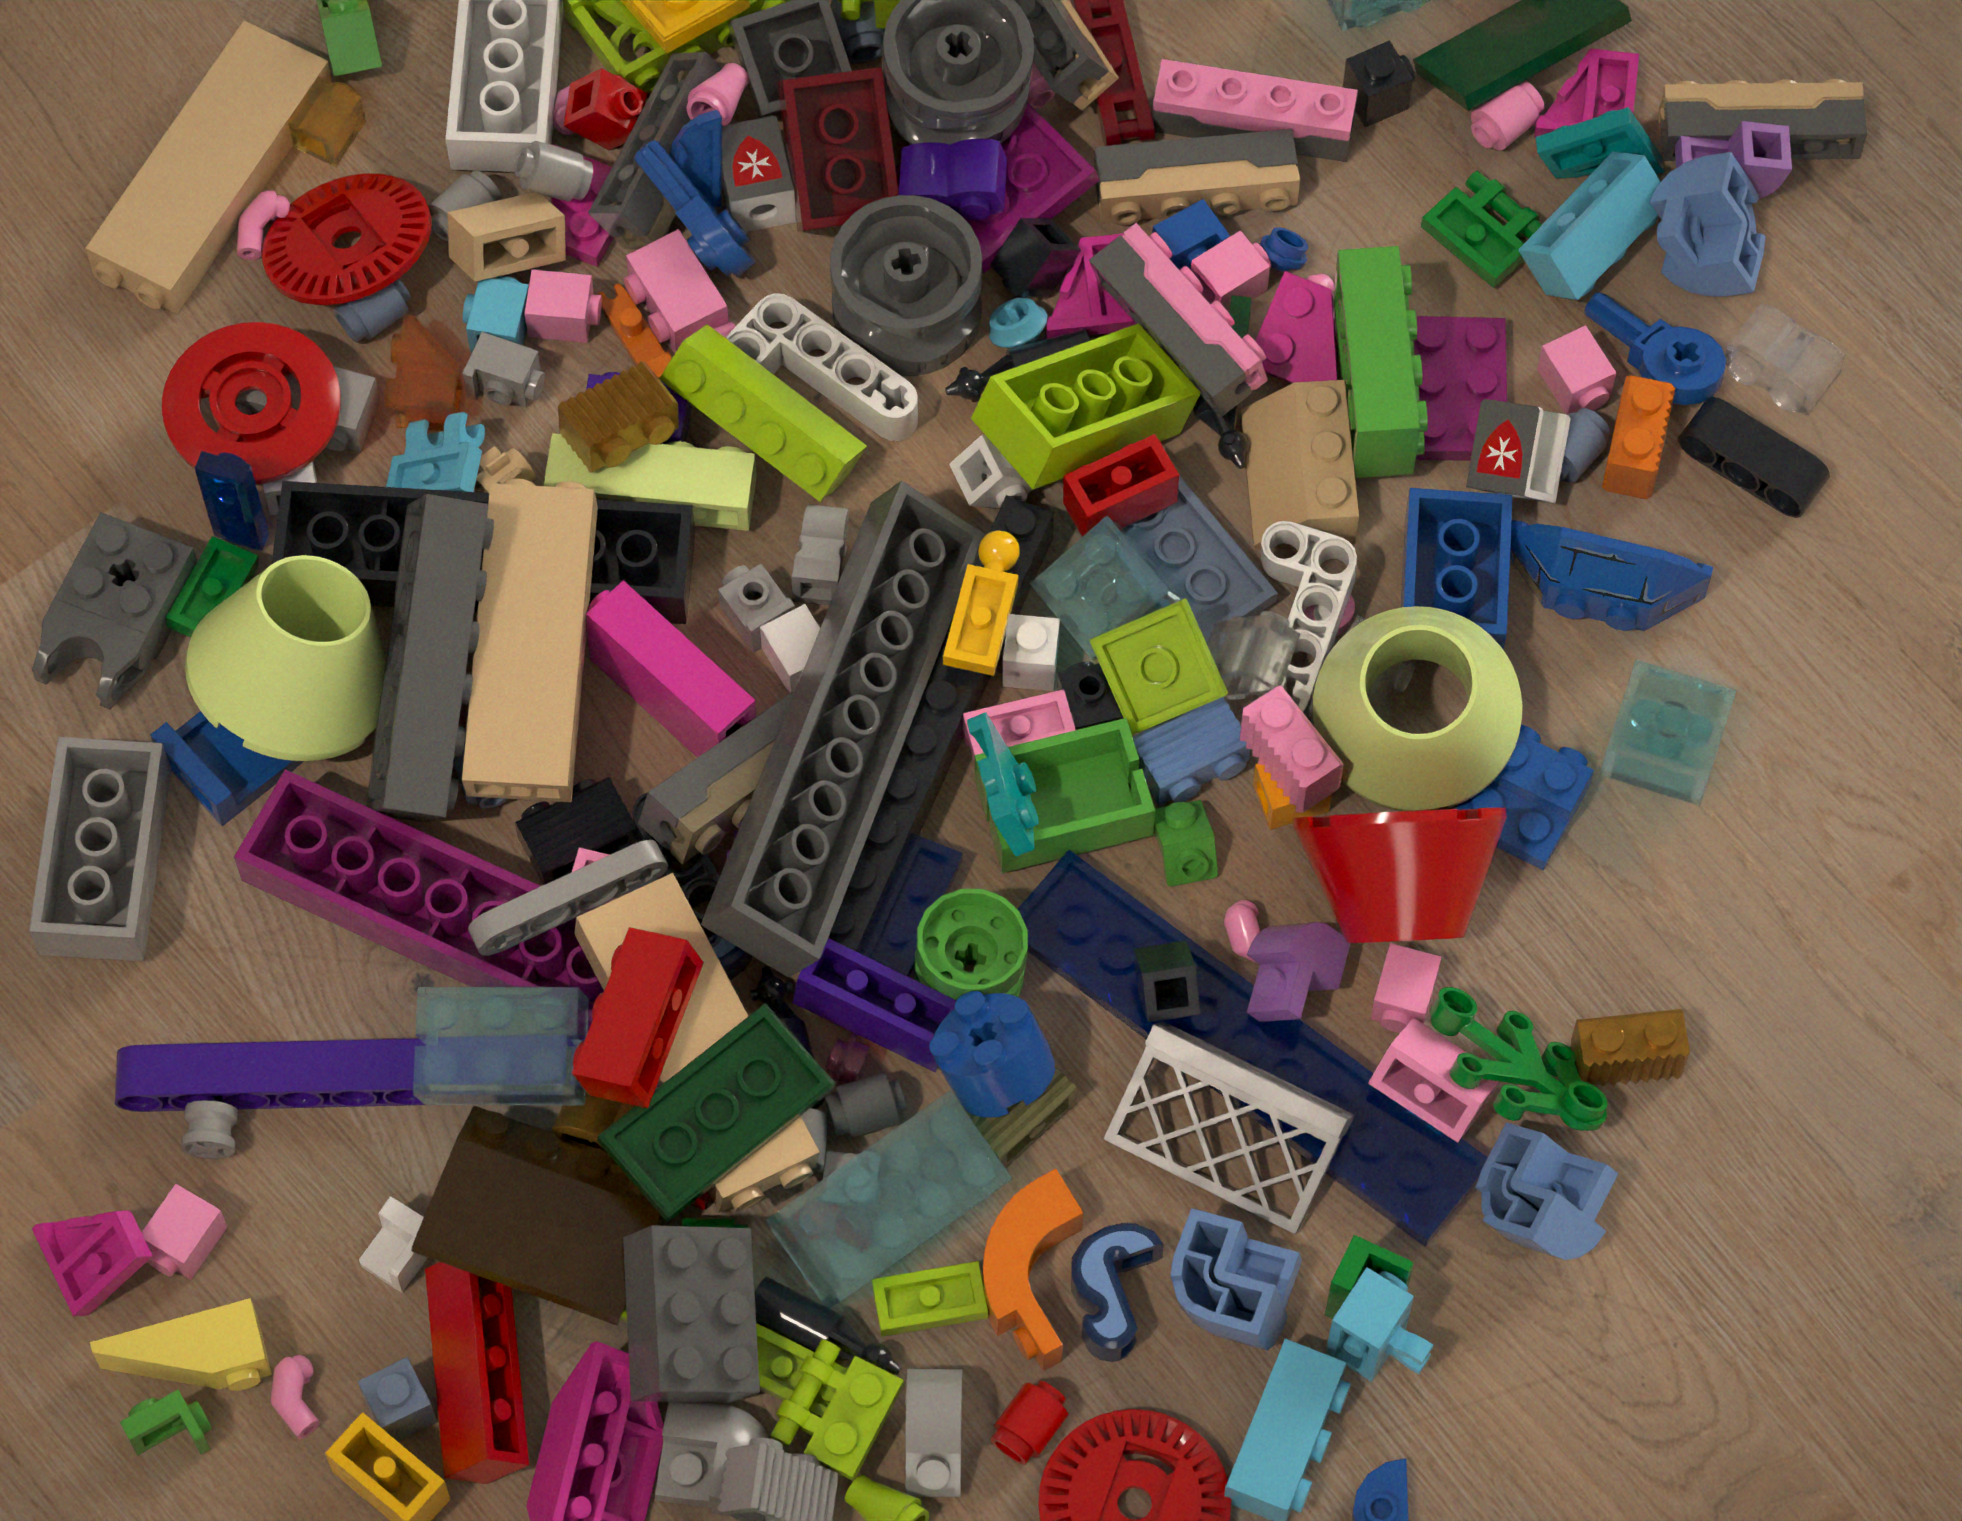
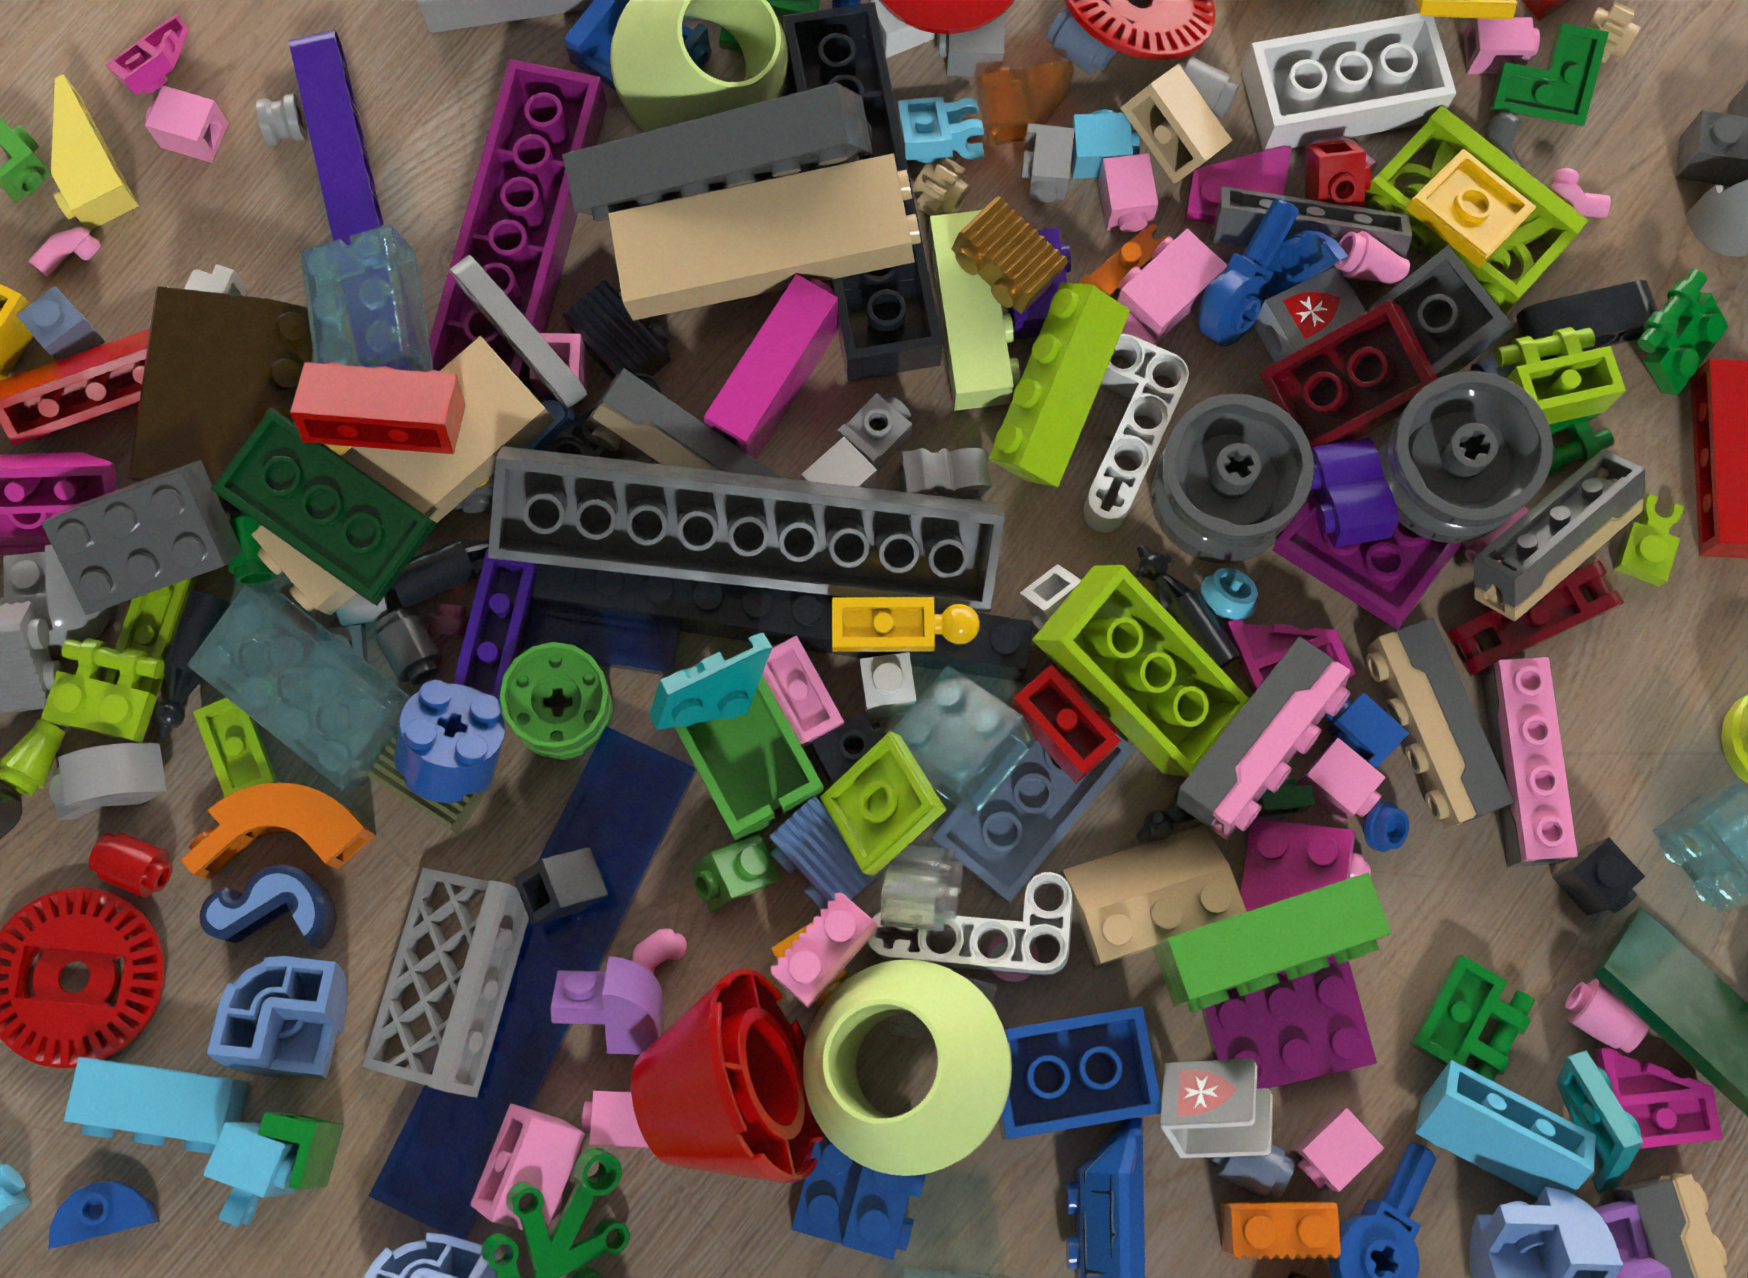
camera: 75 degrees right, 10 degrees up
(553, 171) = (1251, 144): light grey brick -> none
(1034, 258) = (1298, 591): black brick -> none

